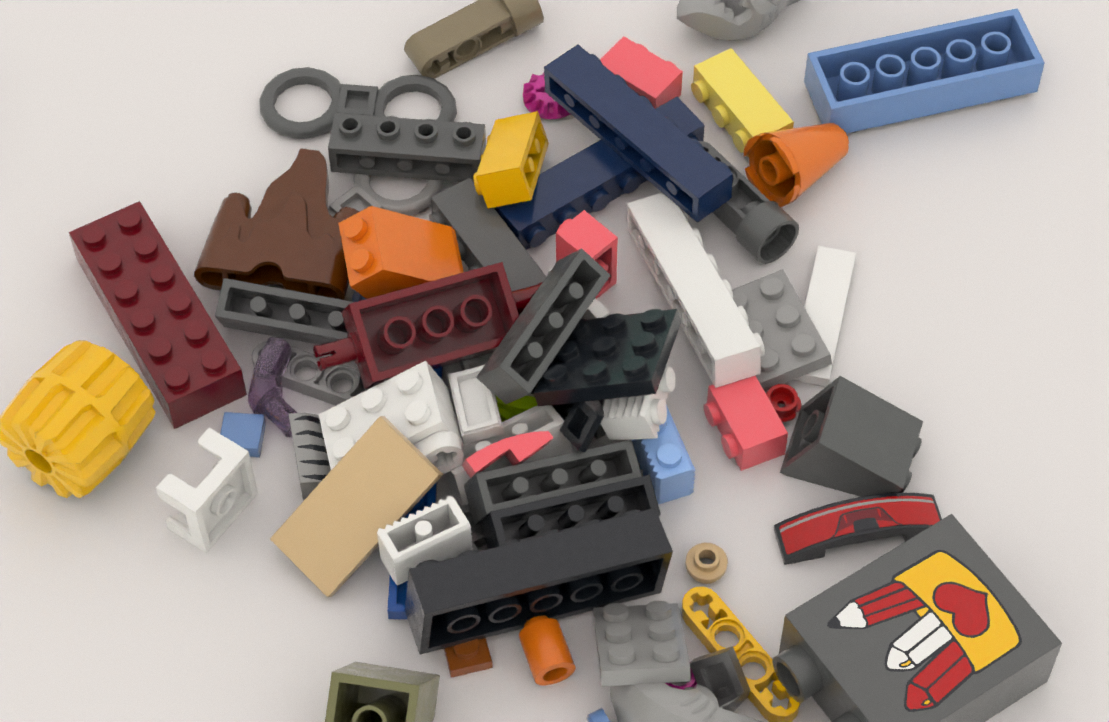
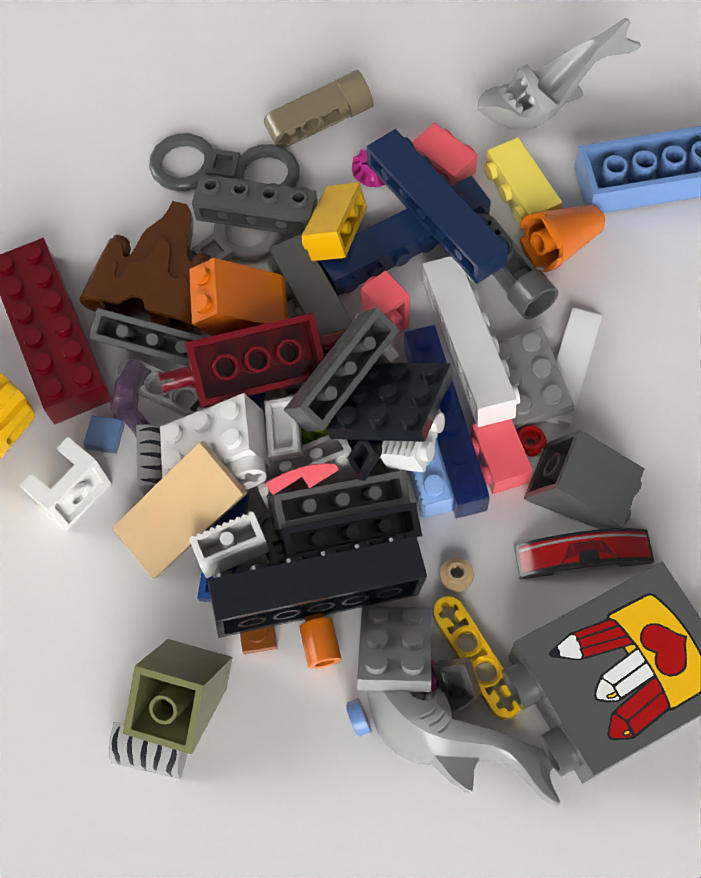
camera: 10 degrees right, 10 degrees up
(688, 402) = (454, 441): none -> clear blue brick

